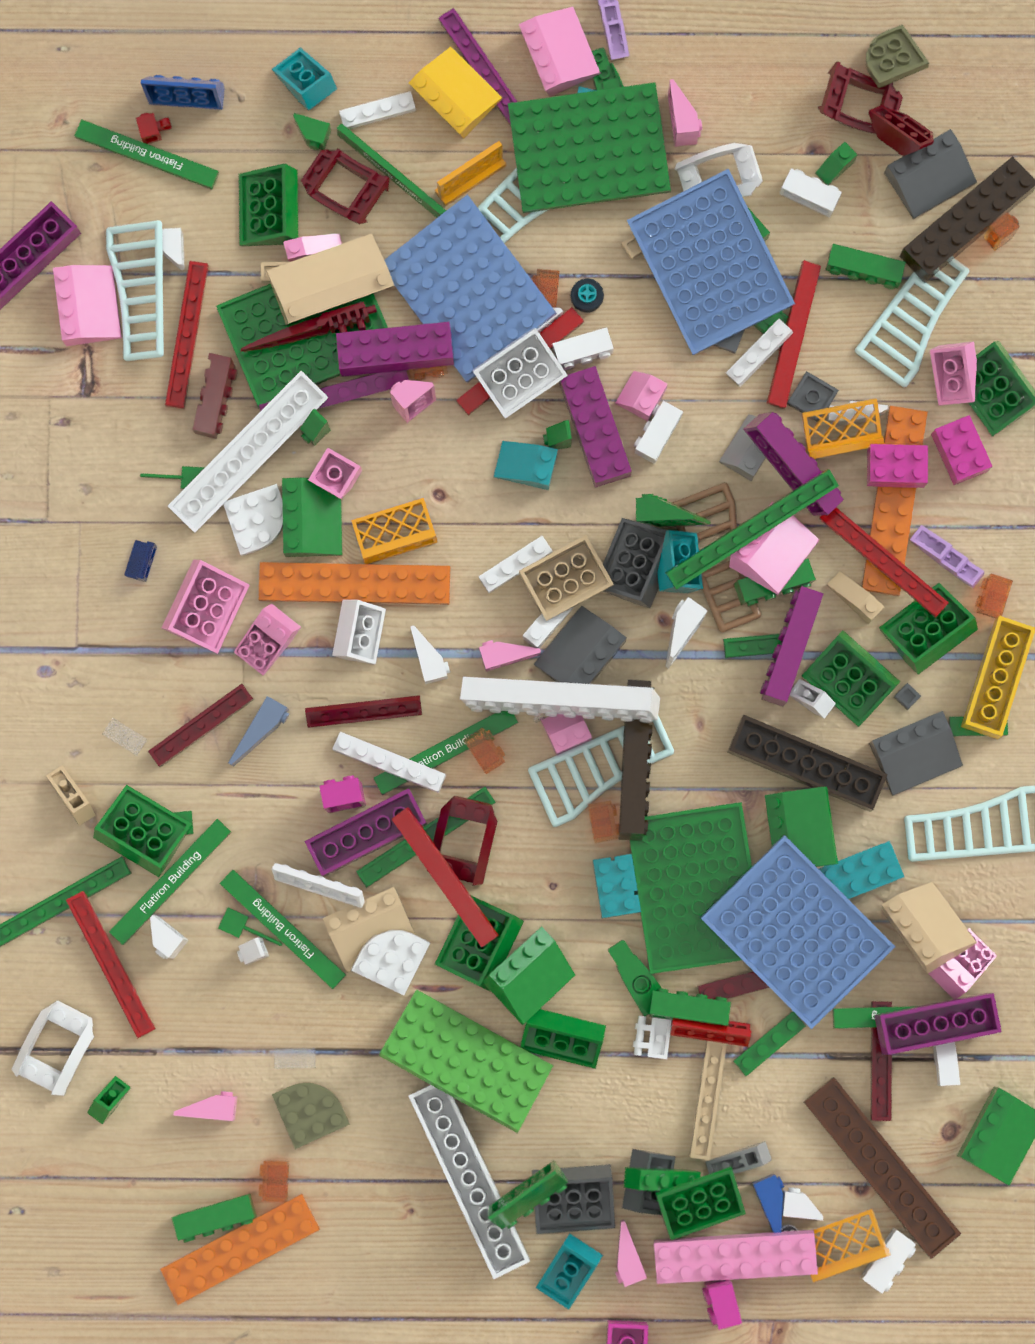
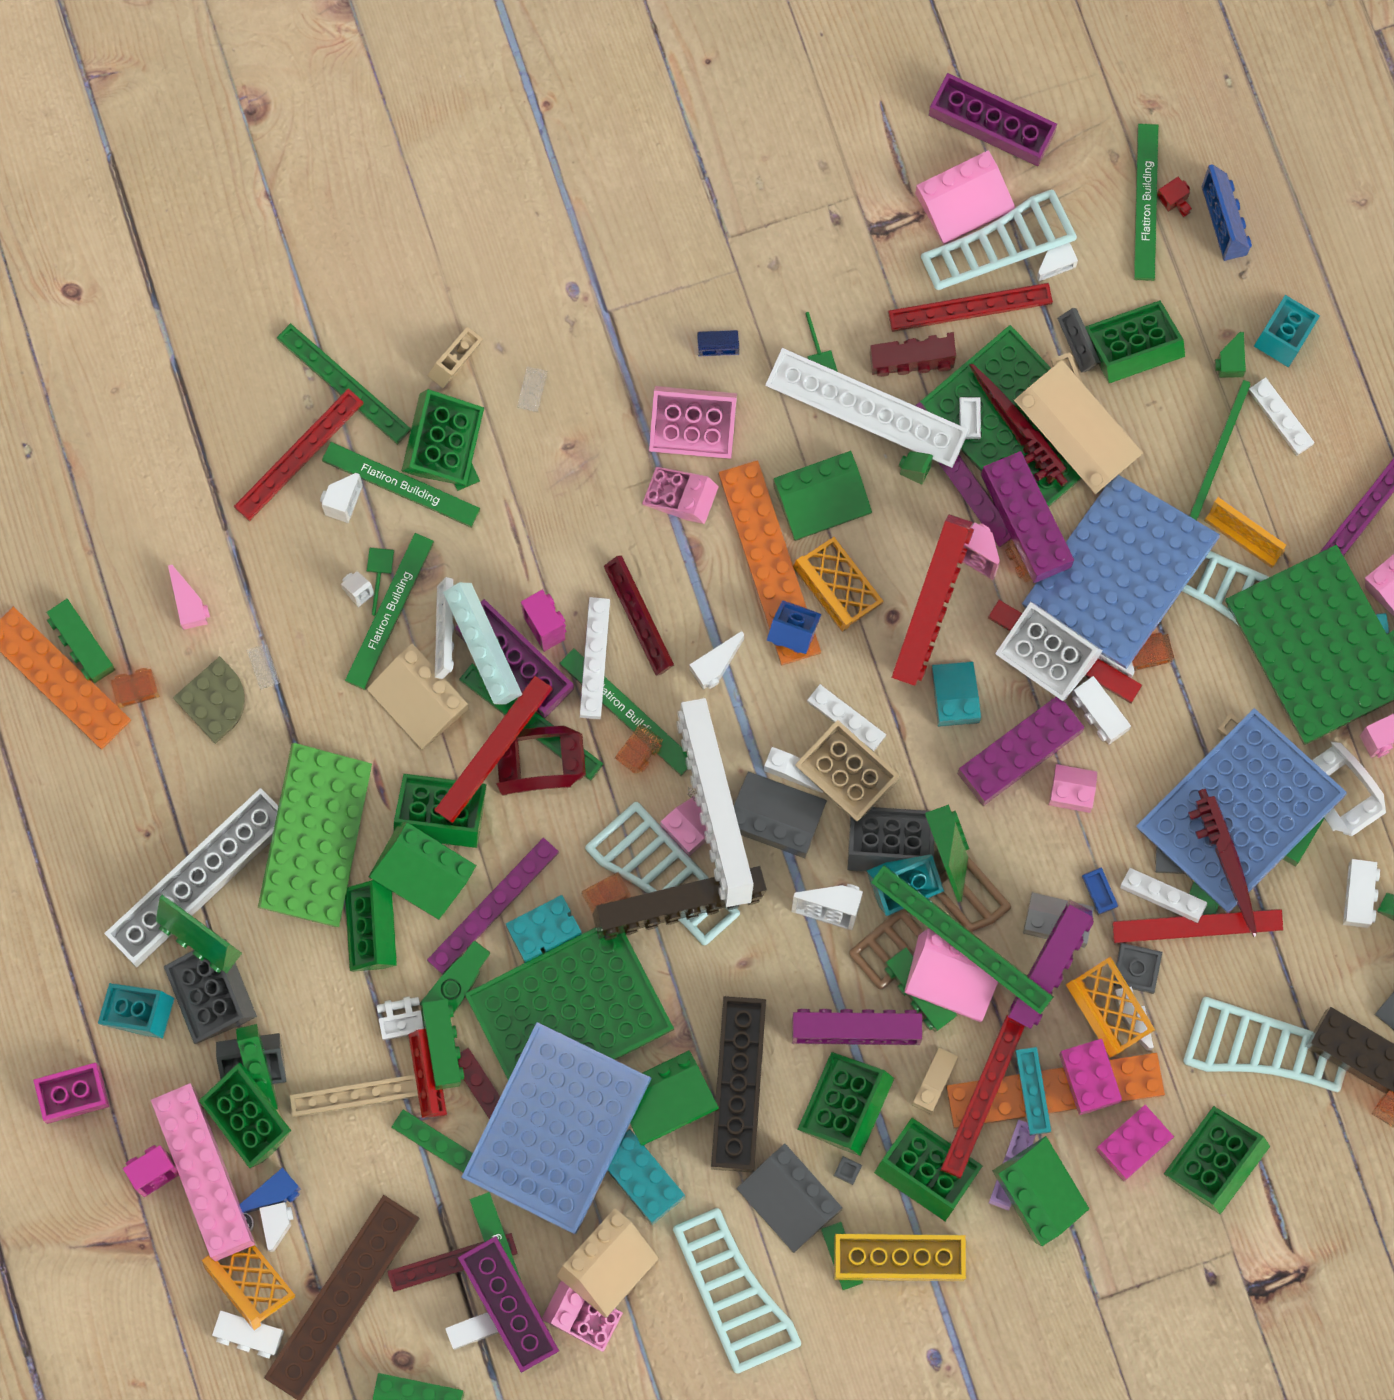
camera: 70 degrees right, 5 degrees down
(42, 1073) = (169, 428): white wedge -> none
(108, 1100) = (163, 499): green slope -> none
(200, 725) = (569, 459): dark red plate -> none
(250, 253) = (1078, 340): none -> dark grey plate
(255, 518) = (801, 440): white plate -> none
(265, 722) = (594, 521): sand blue slope -> none
(286, 366) = (970, 416): none -> white tile
(310, 245) = (1106, 394): slope -> none
(335, 473) = (874, 502): bright pink slope -> none
(347, 855) = (482, 643): none -> light aqua brick
(359, 631) = (719, 583): white slope -> none
(365, 199) = (1181, 435): dark red wedge -> none
(391, 959) = (394, 727): white plate -> none
(423, 580) = (793, 627): none -> blue slope
(444, 451) = (931, 601): none -> red brick
(455, 91) = (1329, 487): yellow slope -> none
(503, 654) = (744, 731): bright pink slope -> none
(558, 436) = (996, 715): green slope -> none
(579, 924) = (493, 906): none -> magenta plate
(587, 288) = (1164, 690): black wheel -> none
(628, 1262) = (165, 1066): bright pink slope -> none
(657, 431) = (1039, 817): white brick -> none
(736, 404) = (1099, 891): none -> blue tile
(741, 1159) = (304, 1149): light grey slope -> none
(744, 286) = (1219, 835): none -> dark red piece
(750, 645) = (844, 986): green tile -> none
(812, 698) = (810, 1069): white slope -> none
(865, 266) = (1300, 977): green brick -> none
(893, 517) = (1033, 1091): none -> teal plate
(954, 372) = (1216, 1107): bright pink slope -> none
(980, 540) = (1041, 1191): none -> green slope
(993, 596) = (987, 1227): clear orange brick -> none

